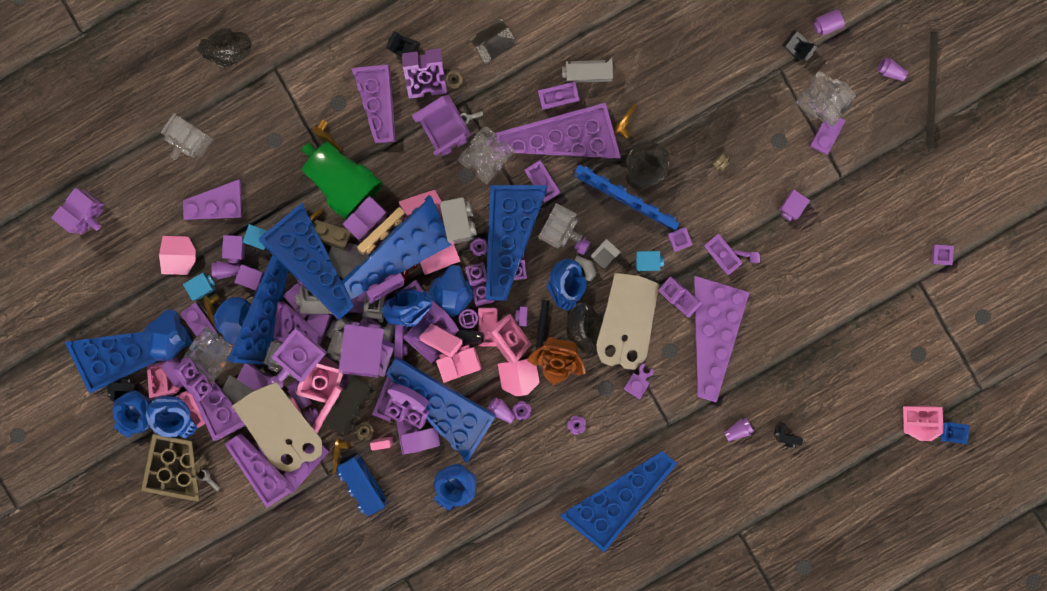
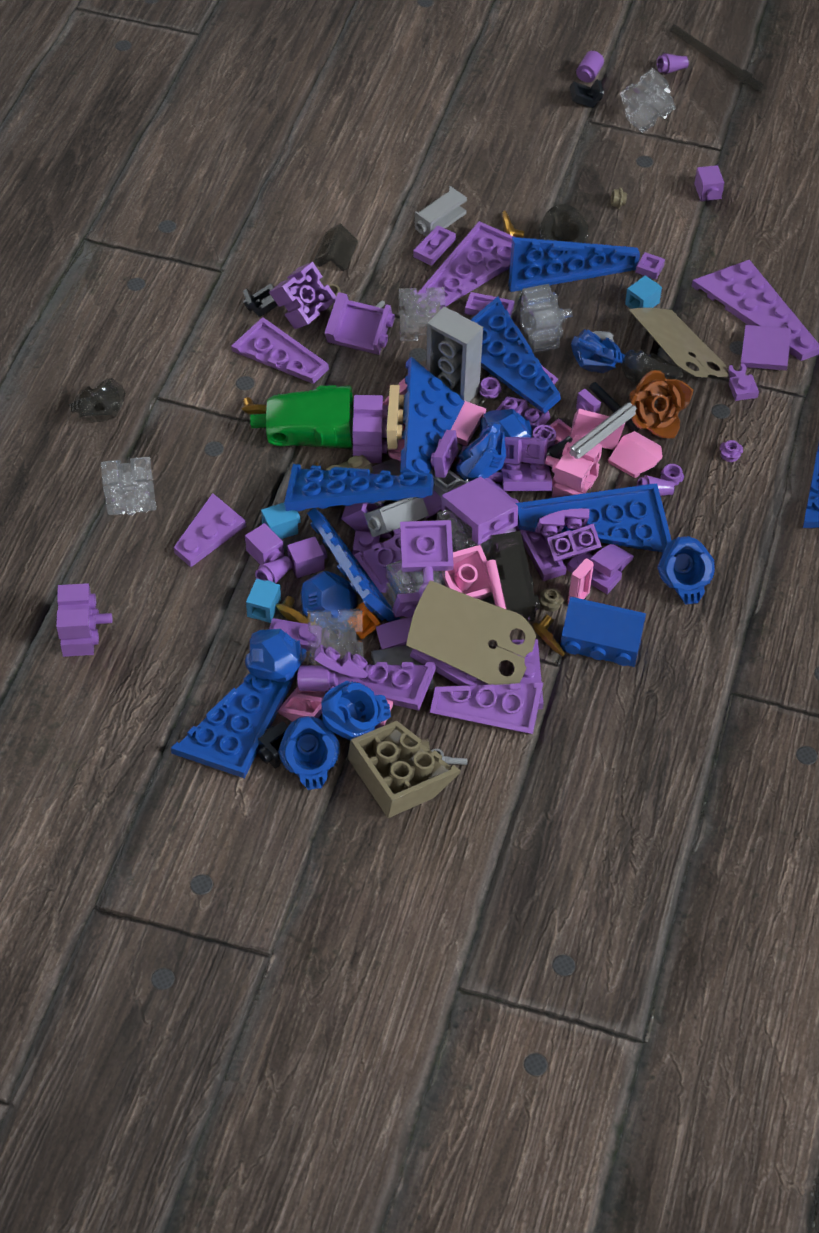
camera: 45 degrees left, 35 degrees down
(177, 255) = (214, 597): bright pink slope -> none
(266, 373) = (405, 604): none -> medium lavender plate
(441, 340) = (541, 455): bright pink tile -> none
(492, 361) = (602, 430): none -> light grey axle
(582, 246) = (577, 325): medium lavender plate -> none
(605, 254) = (602, 314): light grey panel -> none
(679, 296) = (694, 302): medium lavender slope -> none
(680, 371) = (766, 347): none -> medium lavender tile
(722, 254) = (696, 251): medium lavender plate -> none
(754, 256) = (721, 236): medium lavender hand -> none
(826, 136) = (675, 131): medium lavender plate -> none

